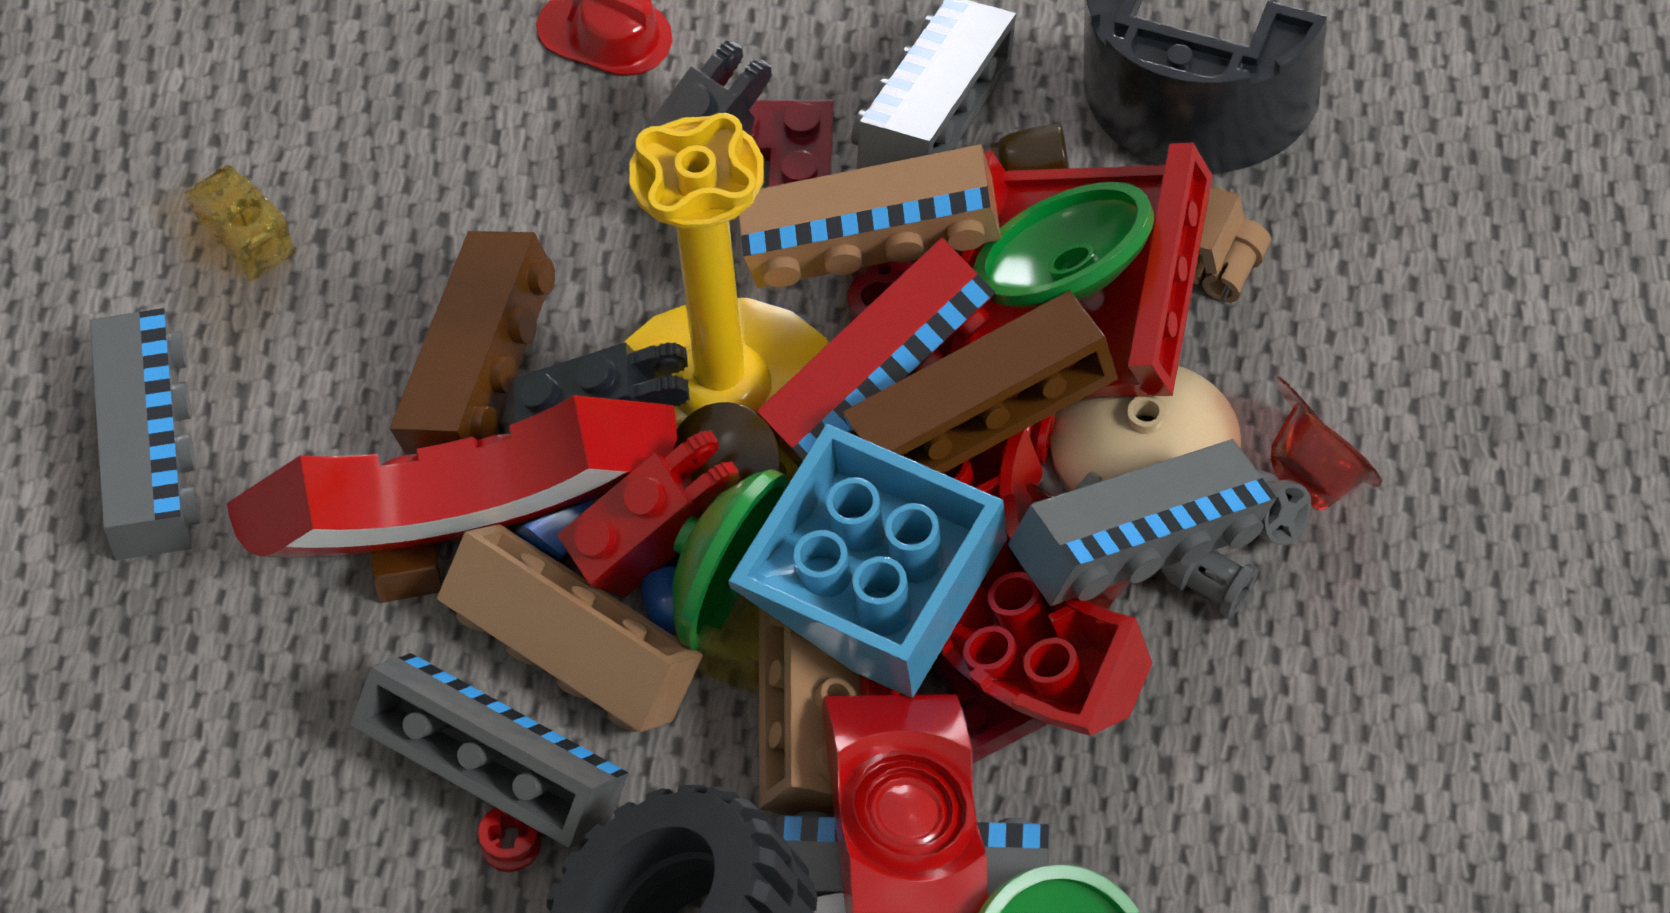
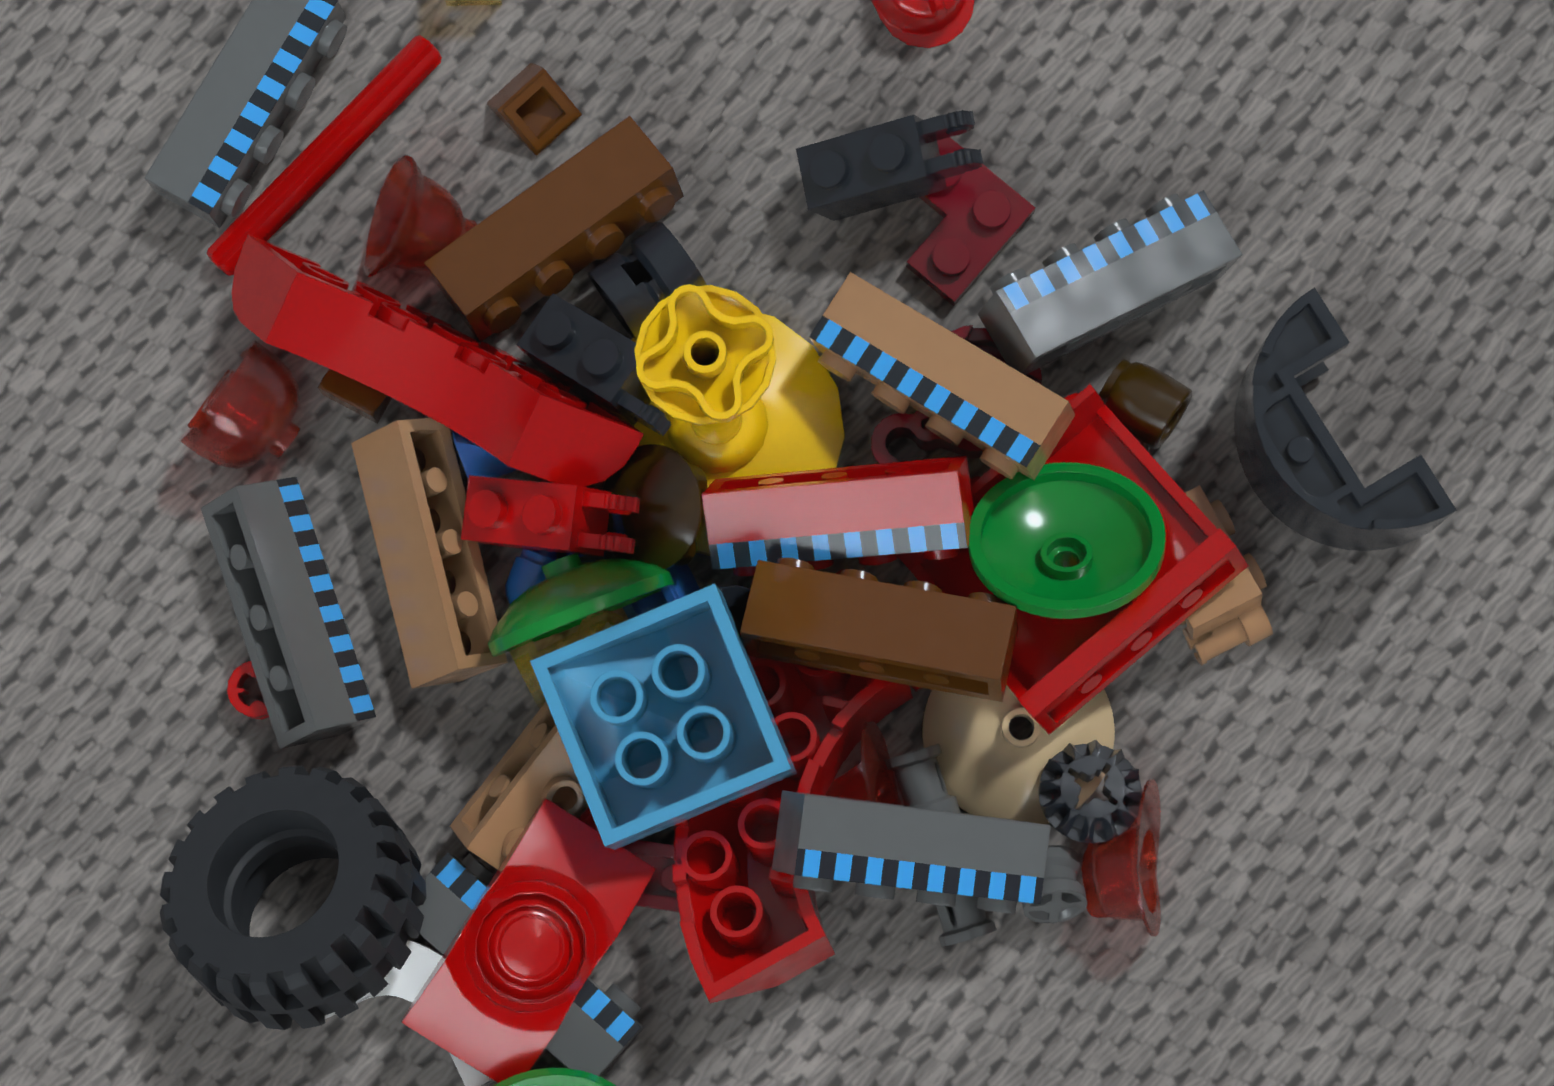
camera: 40 degrees right, 25 degrees up
(237, 435) = (327, 151): none -> red axle
(329, 635) = (247, 412): none -> clear red cylinder
(348, 412) = (411, 220): none -> clear red hat
(382, 296) = (534, 108): none -> reddish brown slope
(578, 320) = (654, 257): none -> black wheel
(1265, 419) = (1098, 819): none -> black gear

